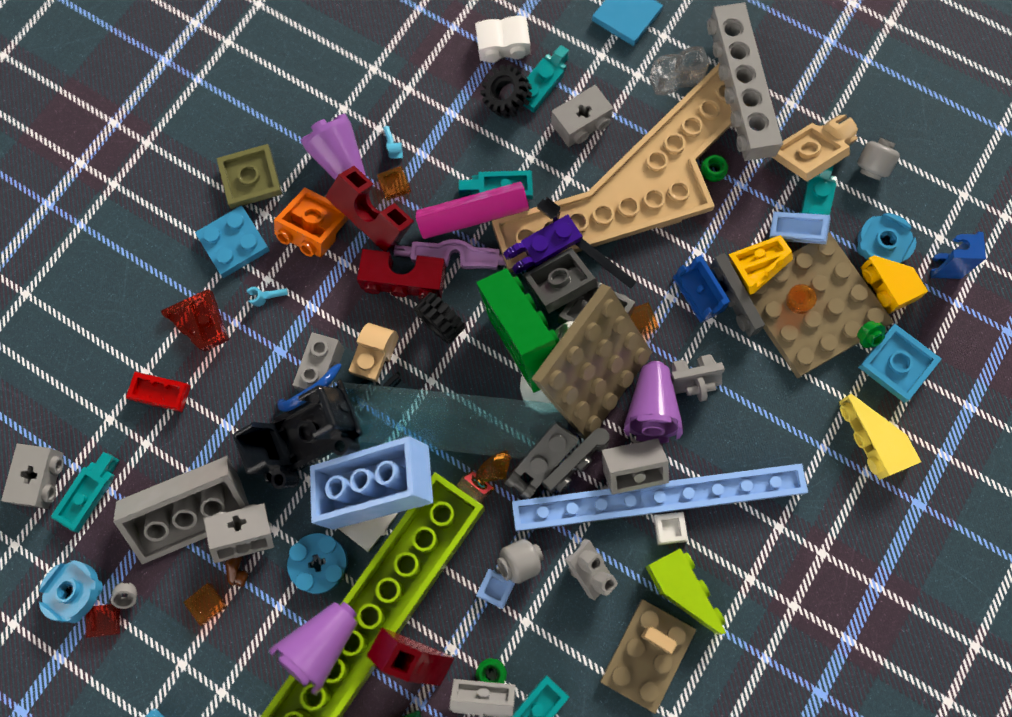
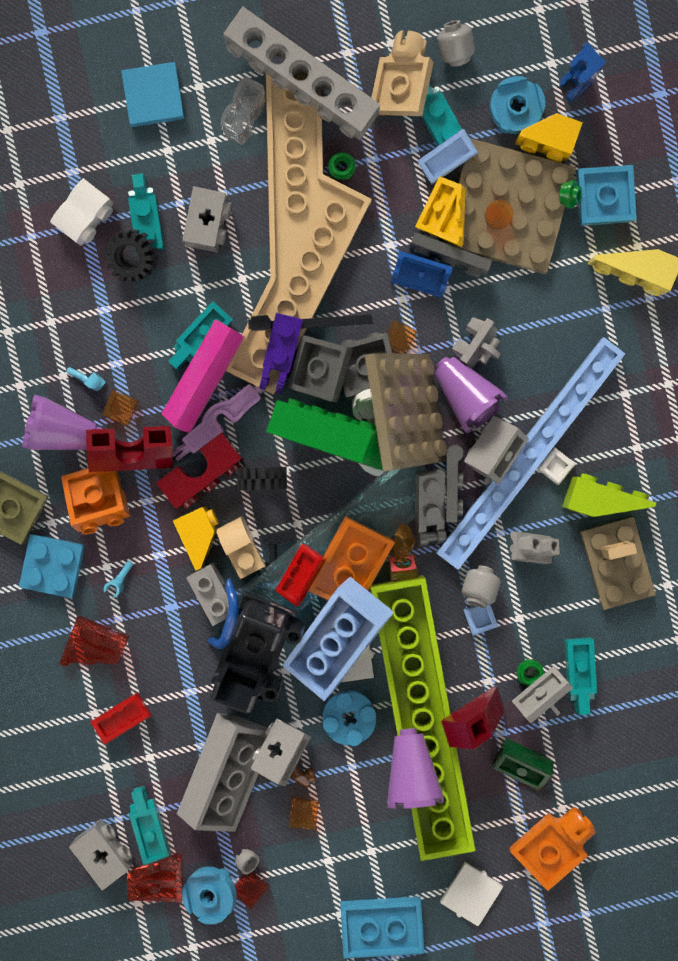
camera: 50 degrees left, 15 degrees up
(46, 539) = (157, 880): none -> clear red wing
(352, 314) = (197, 534): none -> yellow slope
(394, 410) = (300, 575): none -> red plate
(451, 435) = (352, 553): none -> orange plate

